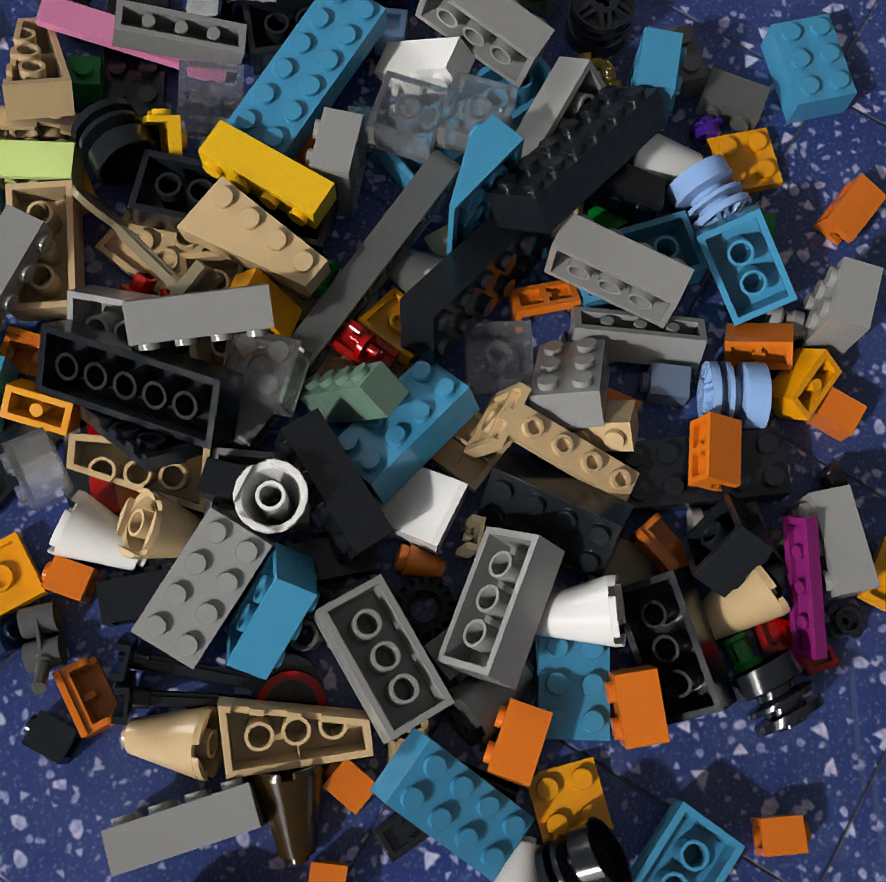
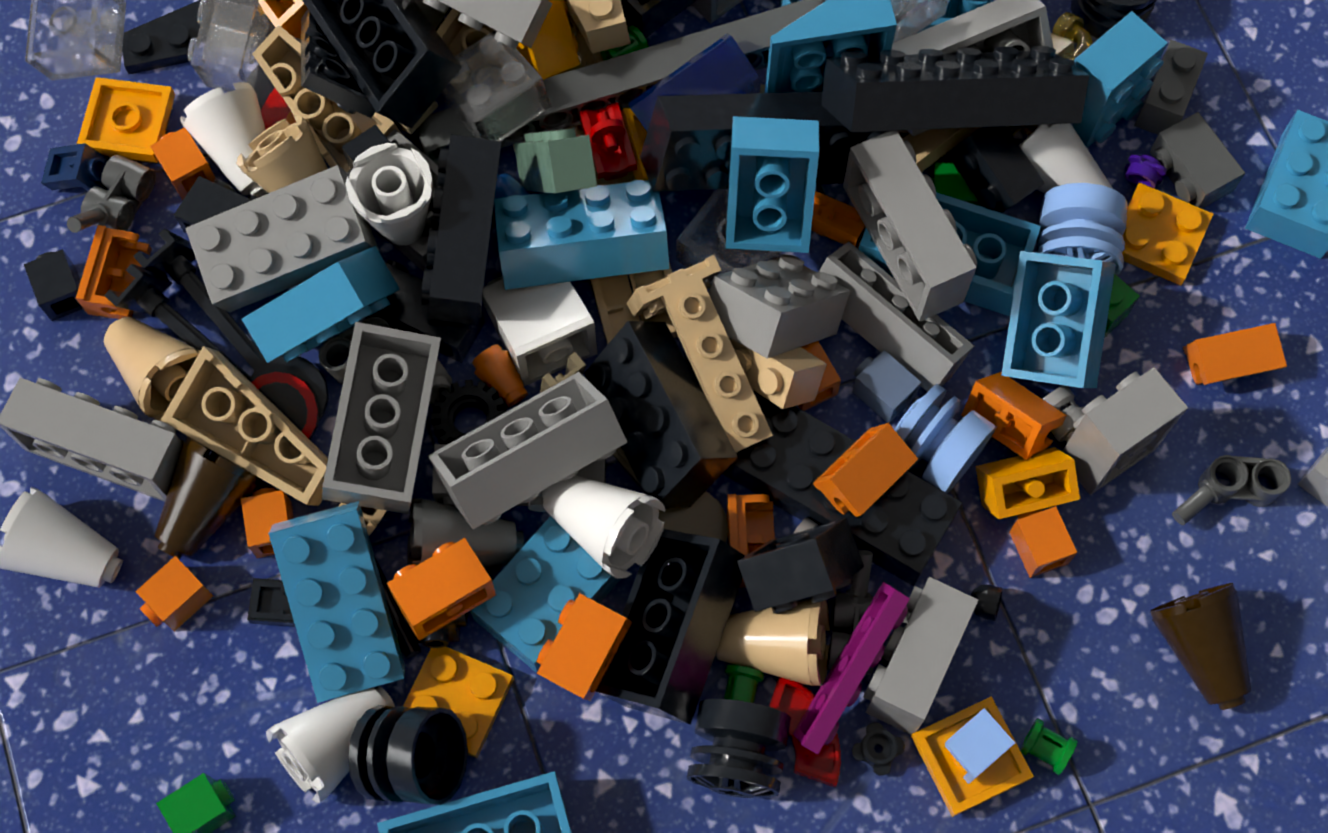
camera: 45 degrees right, 5 degrees down
(406, 260) = (715, 70): none -> clear blue brick
(517, 304) = (772, 184): none -> dark azure brick

